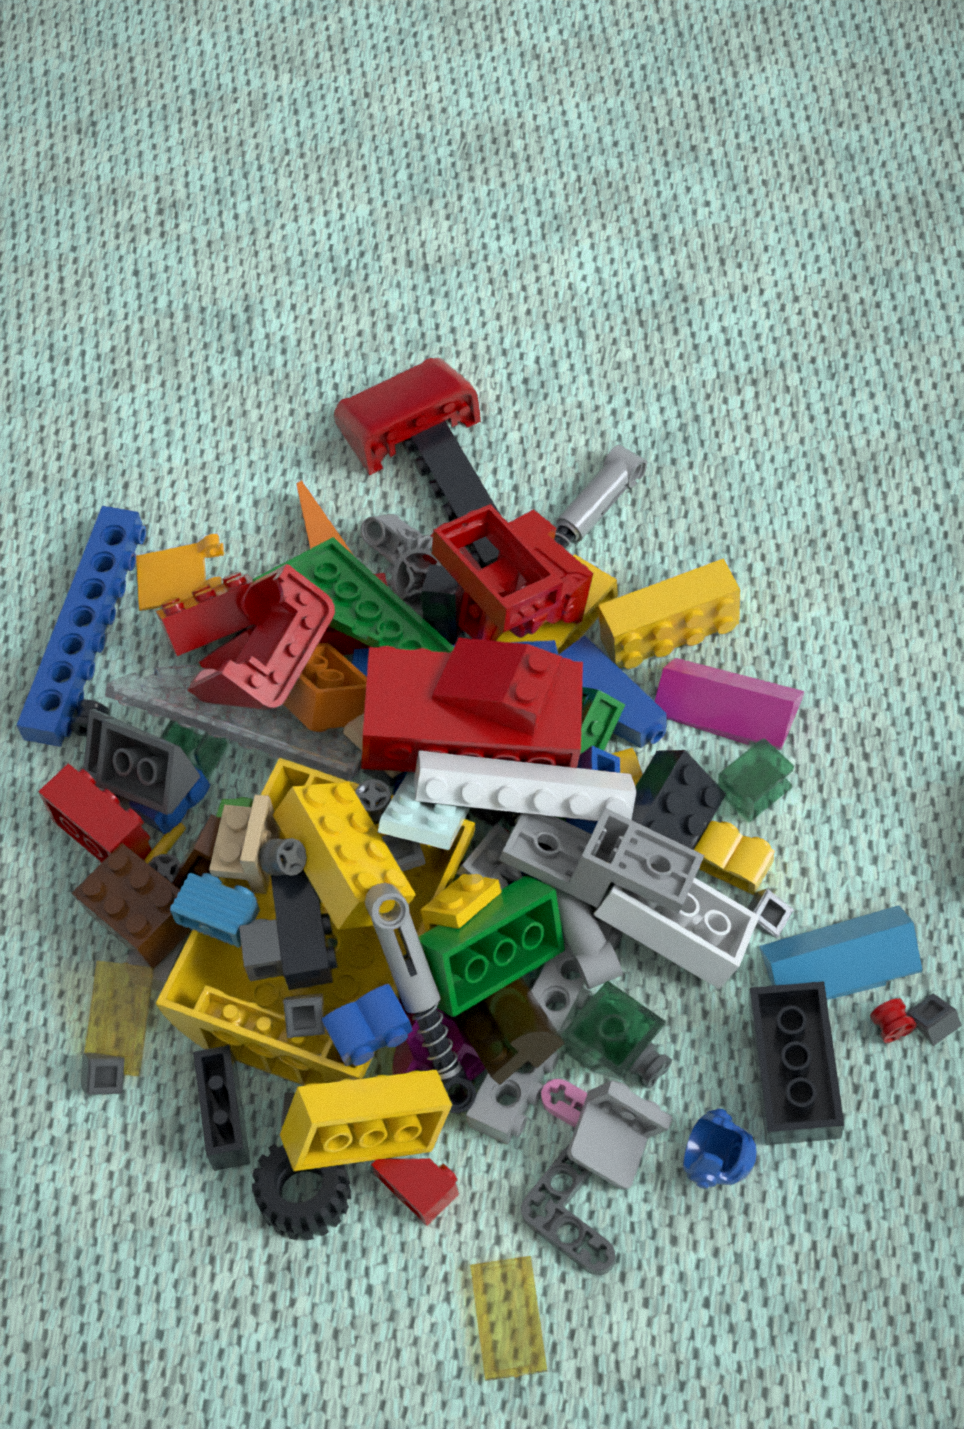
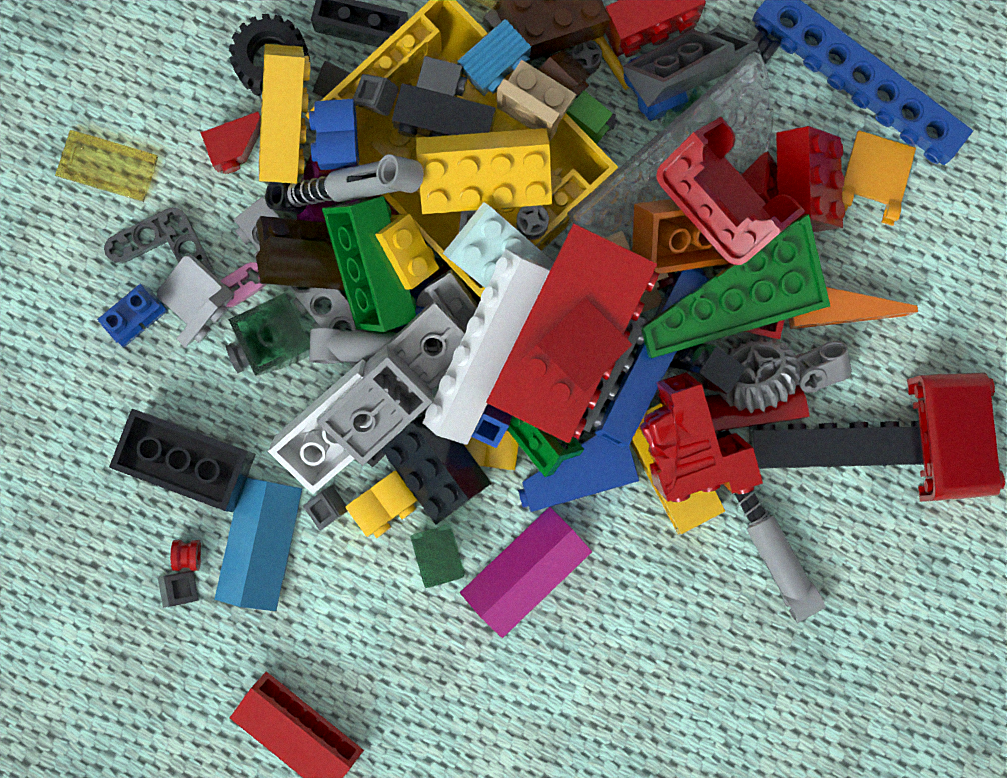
camera: 105 degrees right, 25 degrees up
(289, 850) = (497, 117): dark grey wheel -> none
(516, 608) = (643, 421): red window -> none
(664, 1193) = (124, 318): none -> blue hips
(670, 614) = (623, 562): yellow brick -> none
(718, 1151) = (144, 368): blue helmet -> none

